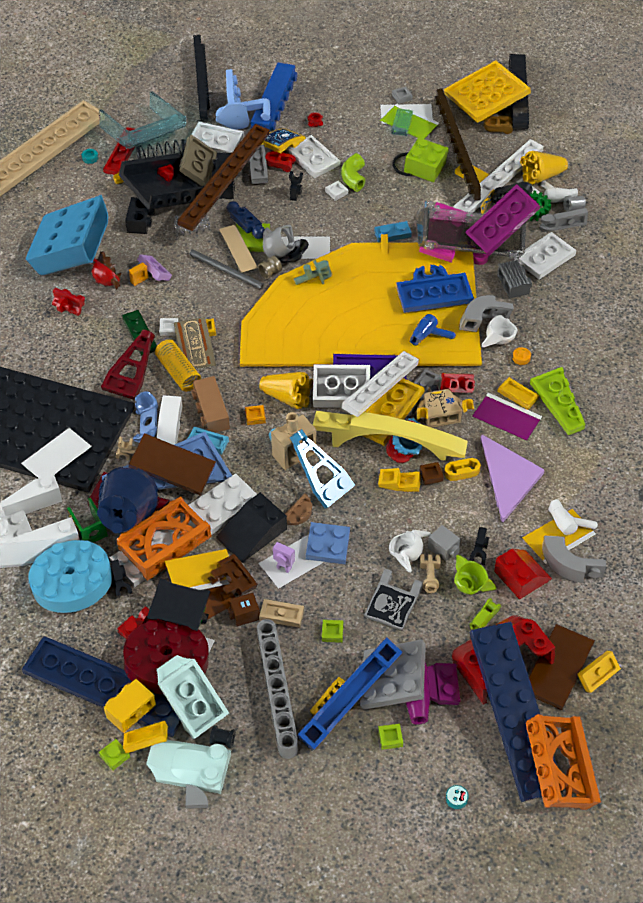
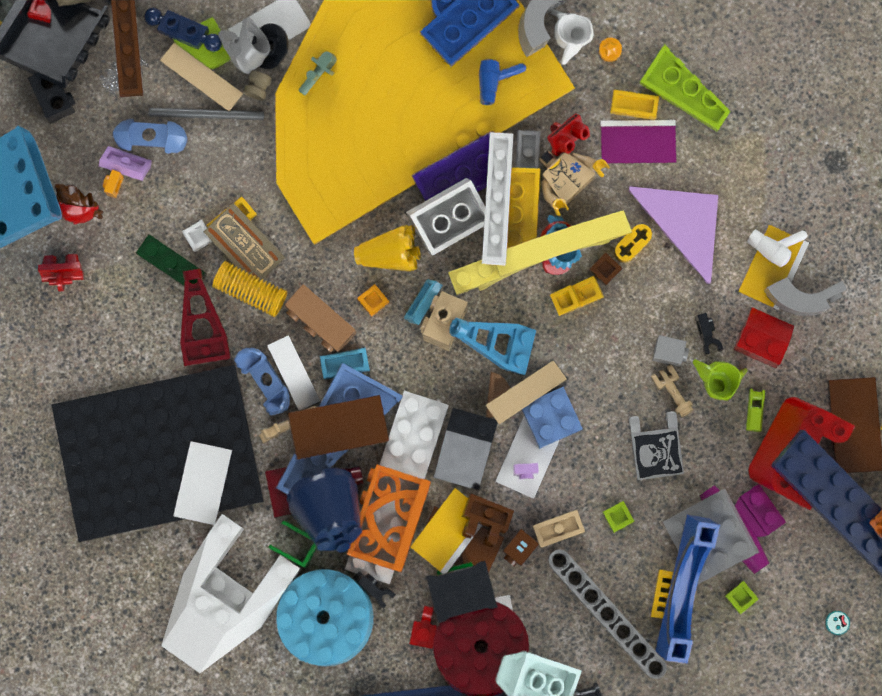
camera: 30 degrees left, 30 degrees up
(193, 266) = (169, 135): none -> medium blue piece
(320, 514) = (526, 392): none -> tan sticker
(407, 547) = (637, 379): white piece -> none

